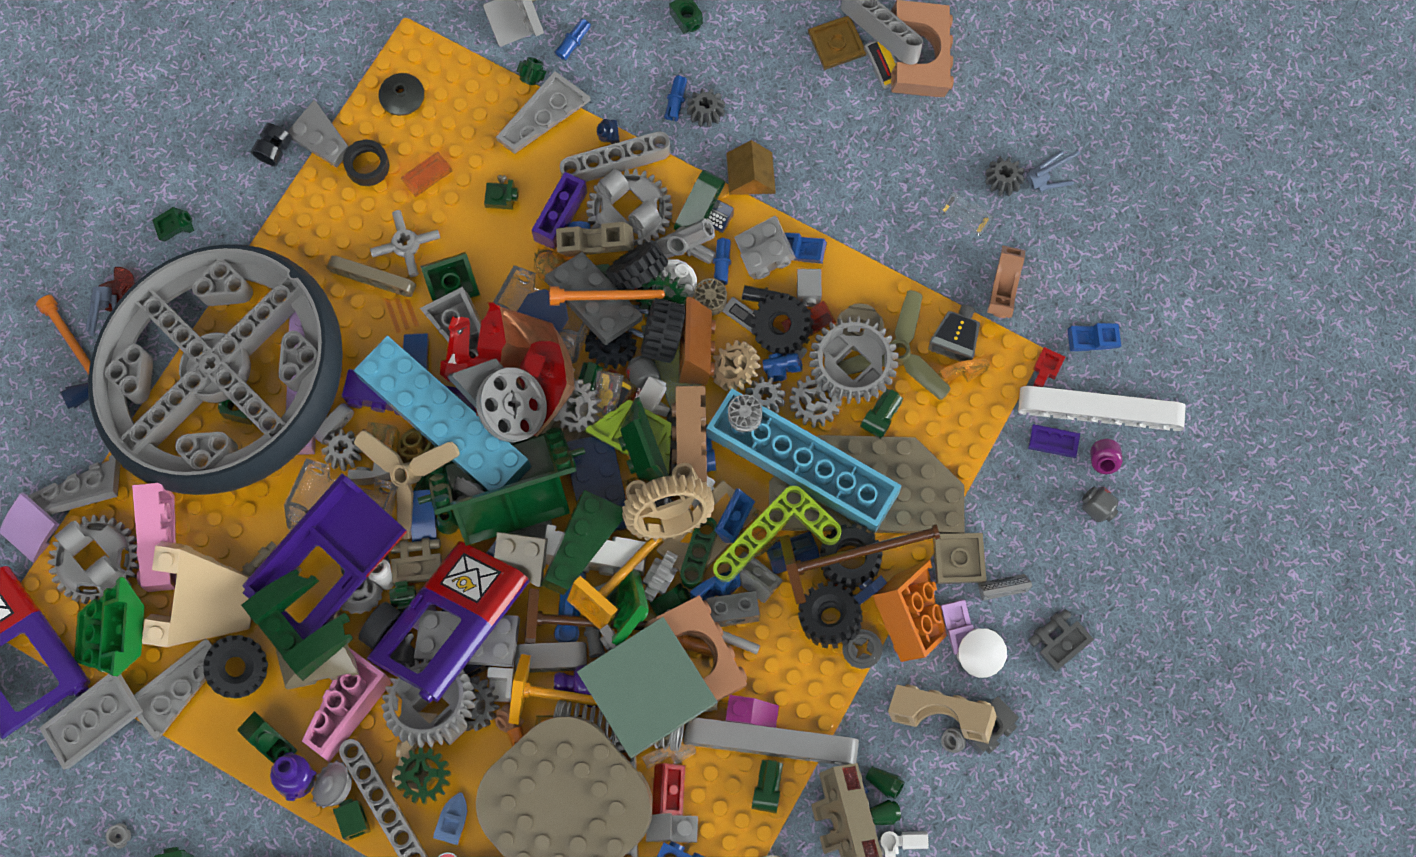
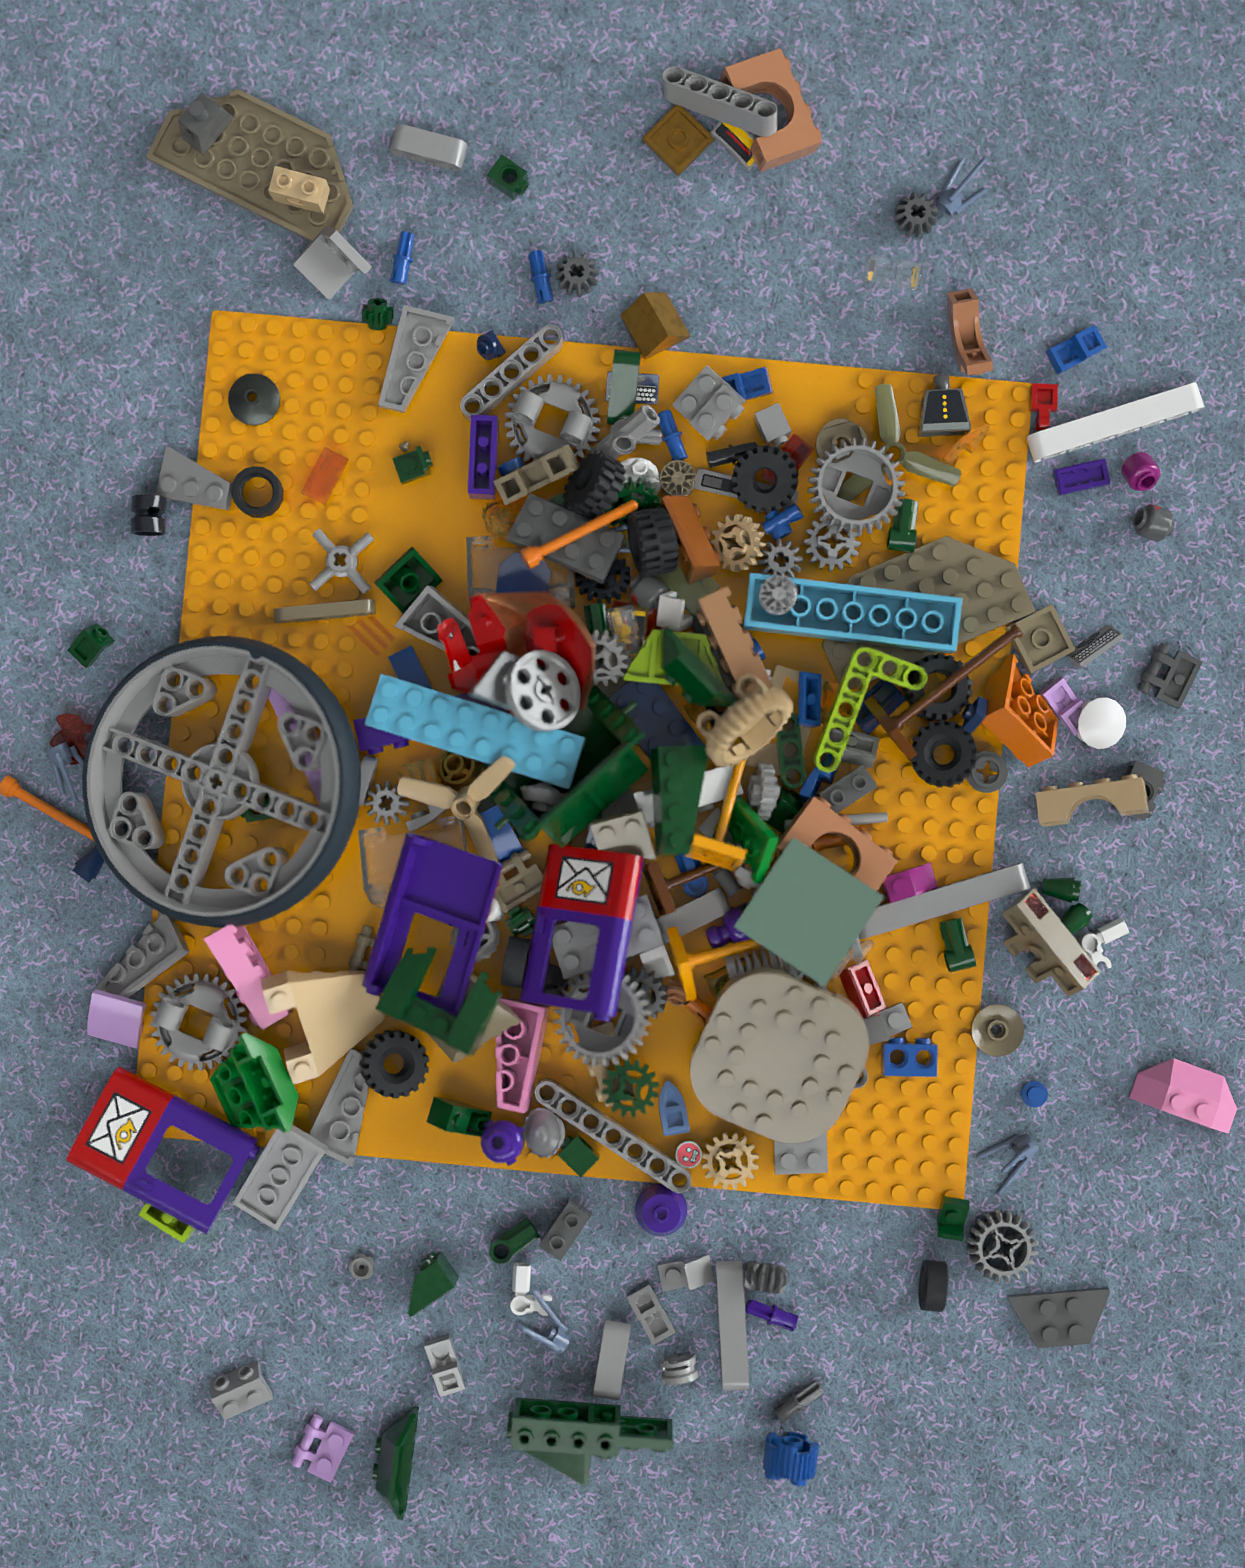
camera: 20 degrees left, 15 degrees up
(948, 742) = (1108, 825): light grey plate -> none

